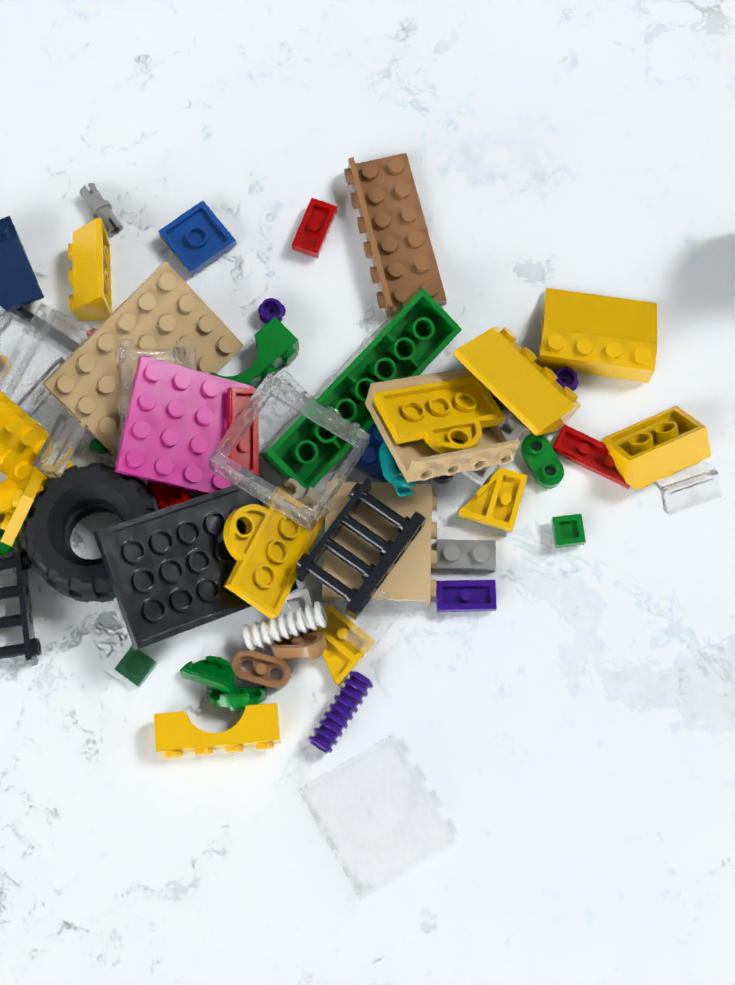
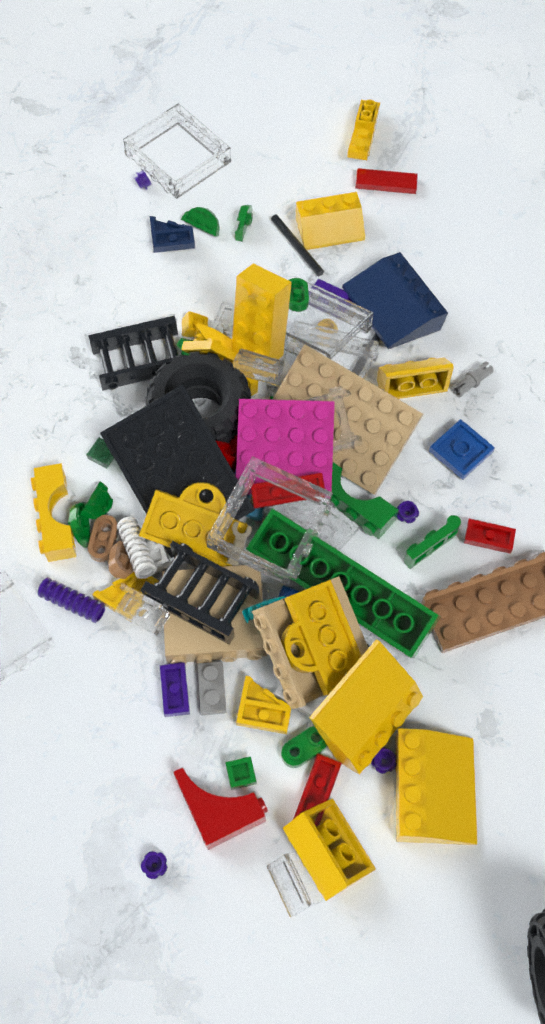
camera: 85 degrees right, 10 degrees down
(315, 288) = (432, 542): none -> green plate
(616, 559) = (219, 816): none -> red arch
(668, 632) = (159, 870): none -> dark purple plate

